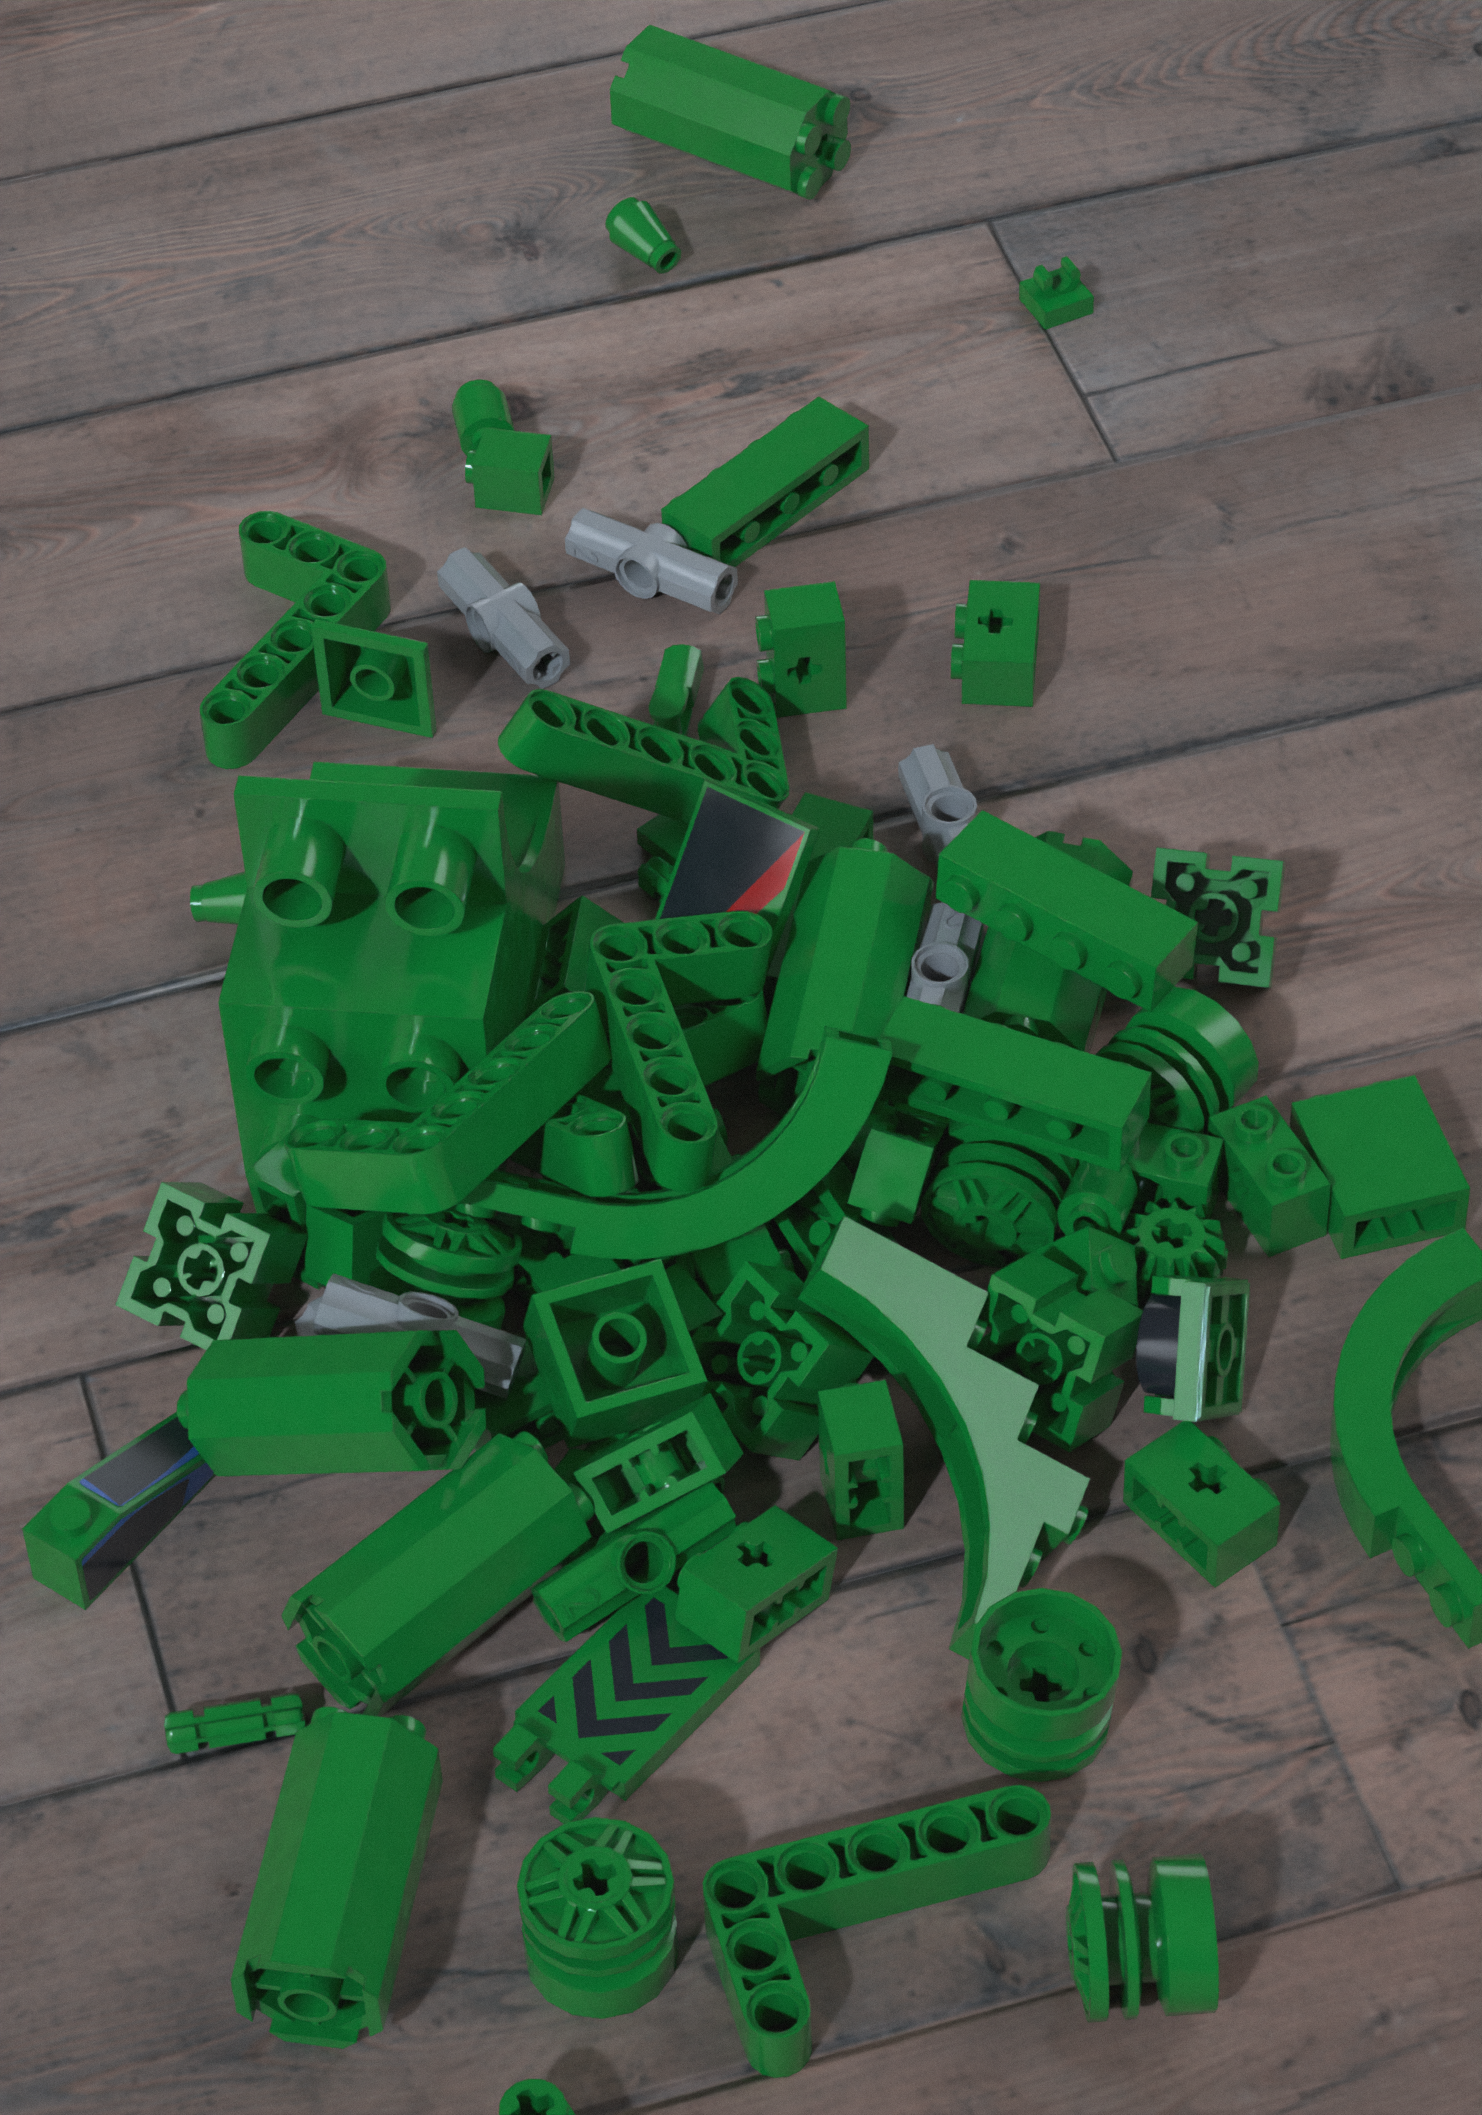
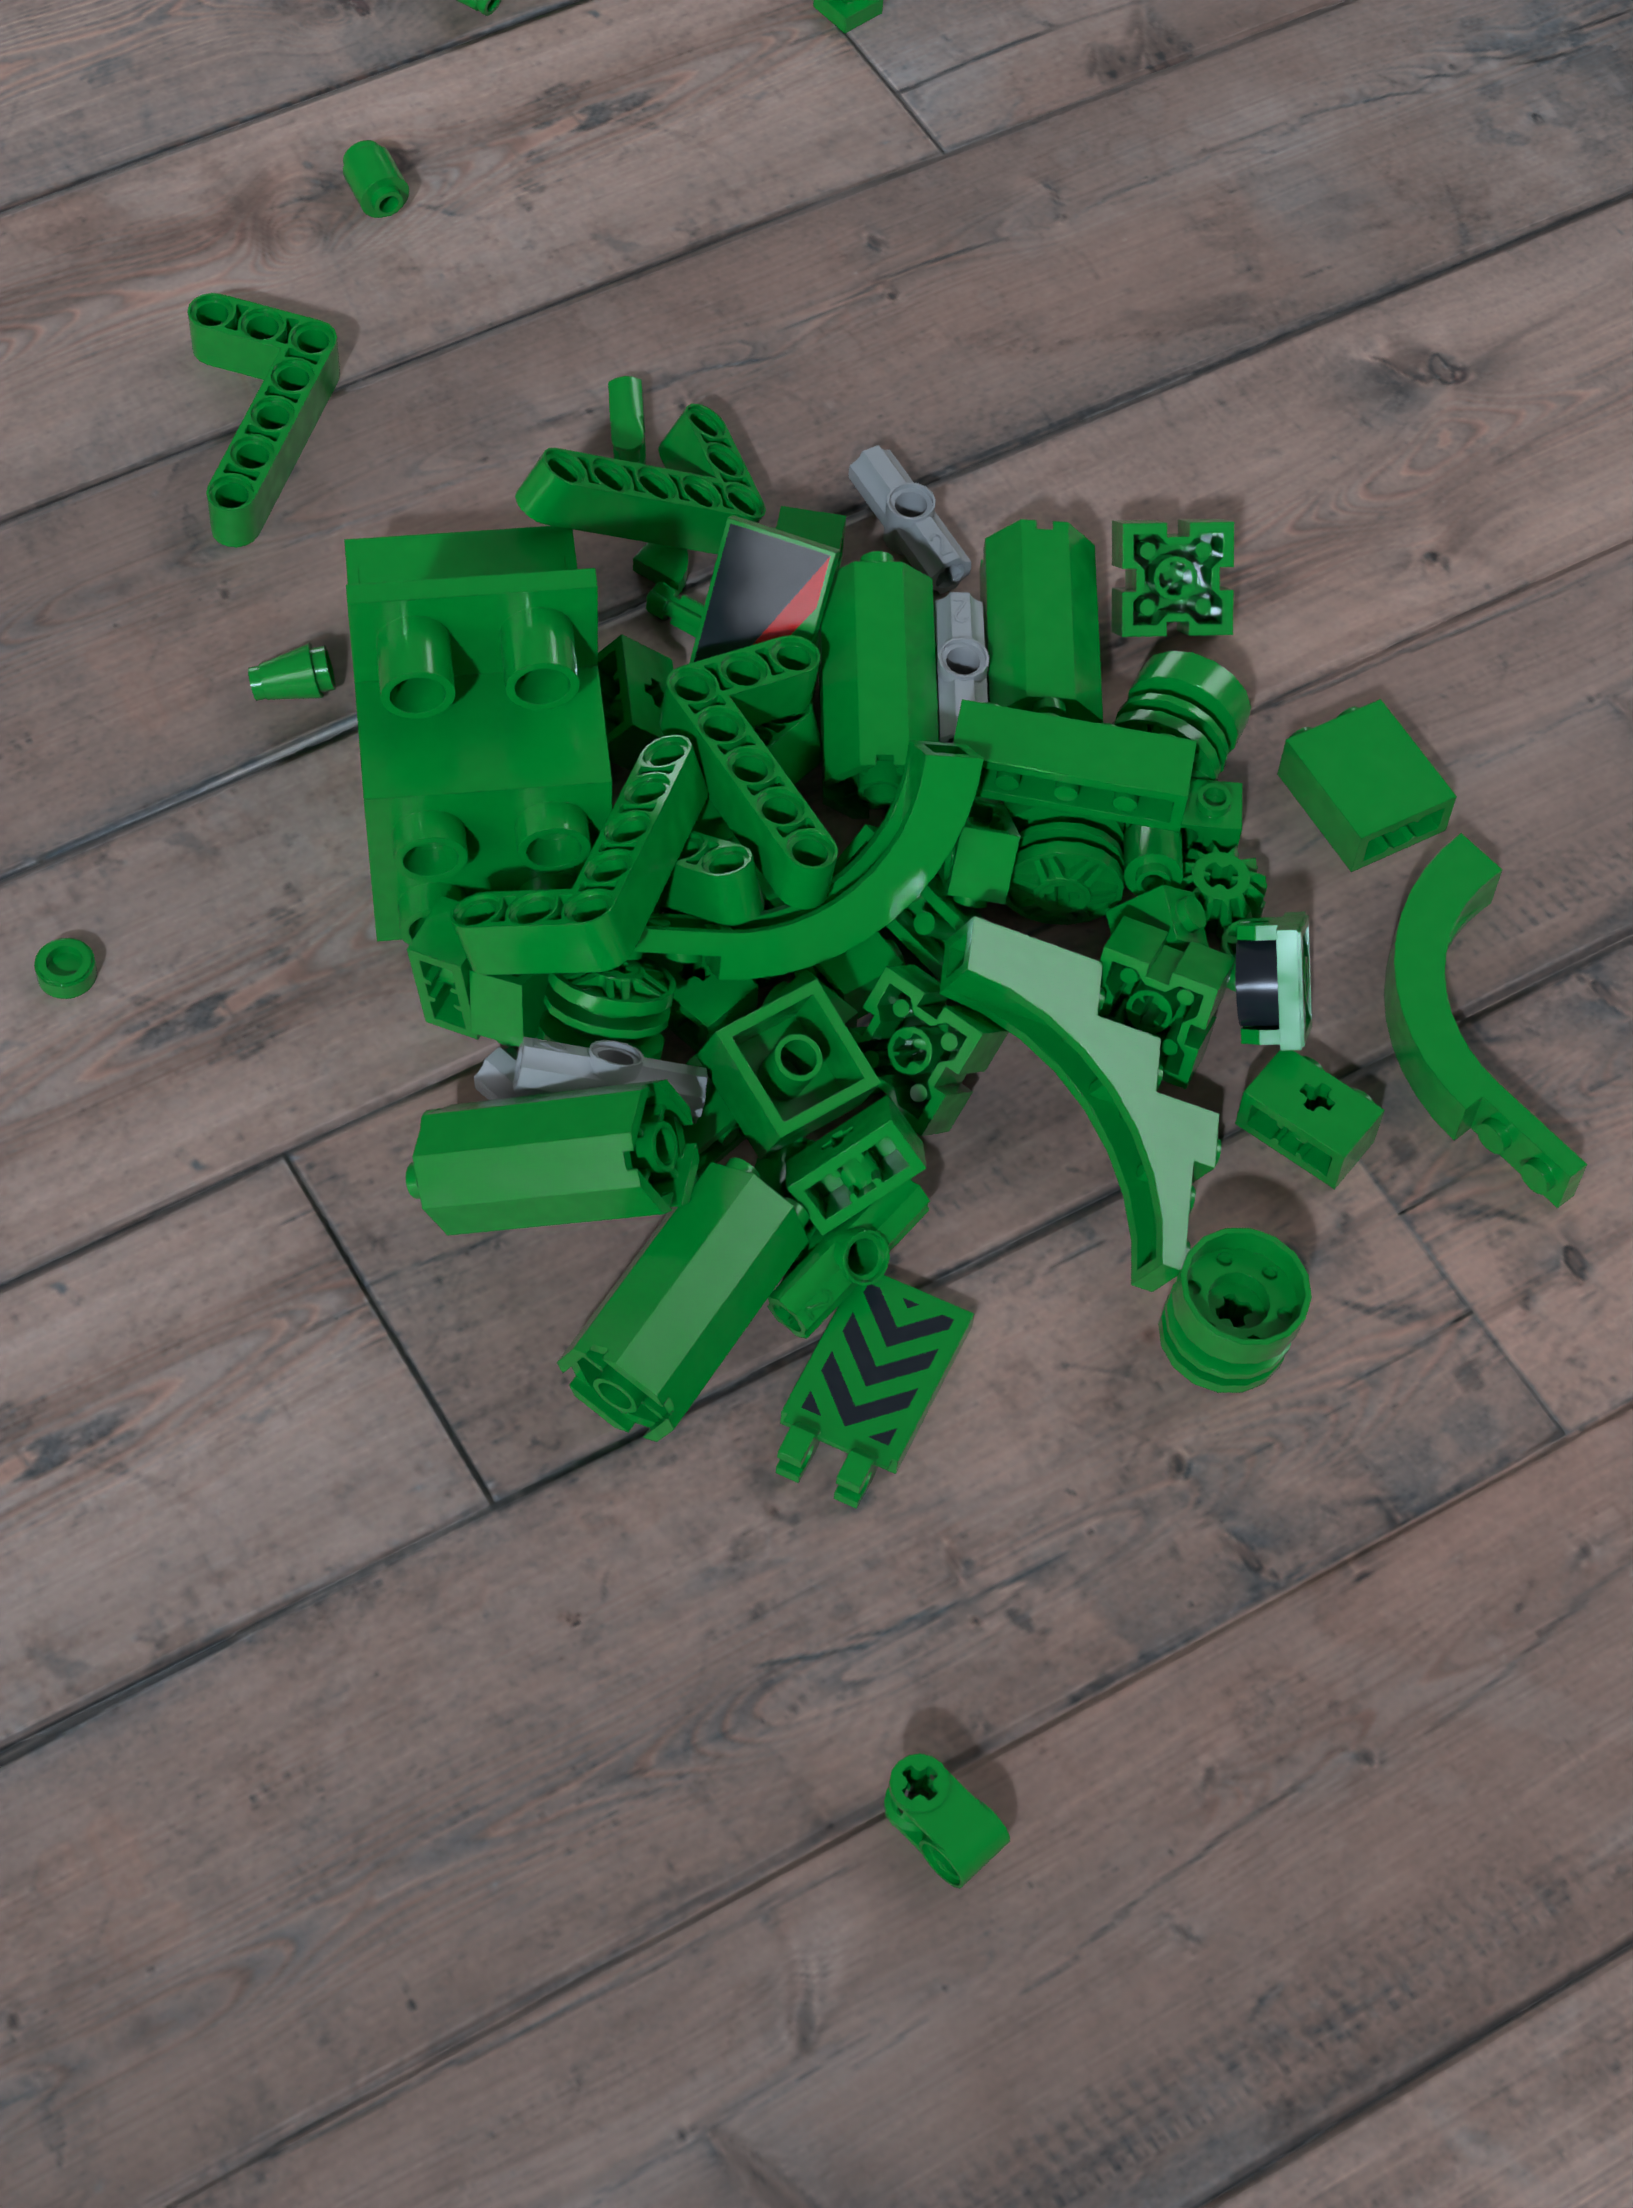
camera: 20 degrees left, 10 degrees up
(114, 1512) = (366, 1280): slope -> none
(210, 1266) = (390, 1041): green brick -> none
(234, 1723) = (532, 1465): green axle -> none
(338, 1878) = (684, 1599): green brick -> none
(374, 678) = (359, 444): green slope -> none
(503, 618) = (451, 369): light grey piece -> none
(511, 471) = (415, 225): green brick -> none
(598, 1917) = (919, 1624): green wheel -> none
(651, 561) = (568, 298): light grey piece -> none
(755, 1583) = (957, 1256): green brick -> none
(771, 483) = (649, 216): green brick -> none
(803, 649) = (740, 367): green brick -> none
(853, 1895) = (1119, 1527): green beam -> none
(861, 1459) = (1020, 1128): green brick -> none
(998, 643) = (901, 339): green brick -> none
(1066, 910) = (1067, 594): green brick -> none
(1144, 1938) = (1390, 1525): green wheel -> none
(1270, 1177) = (1283, 808): green brick -> none

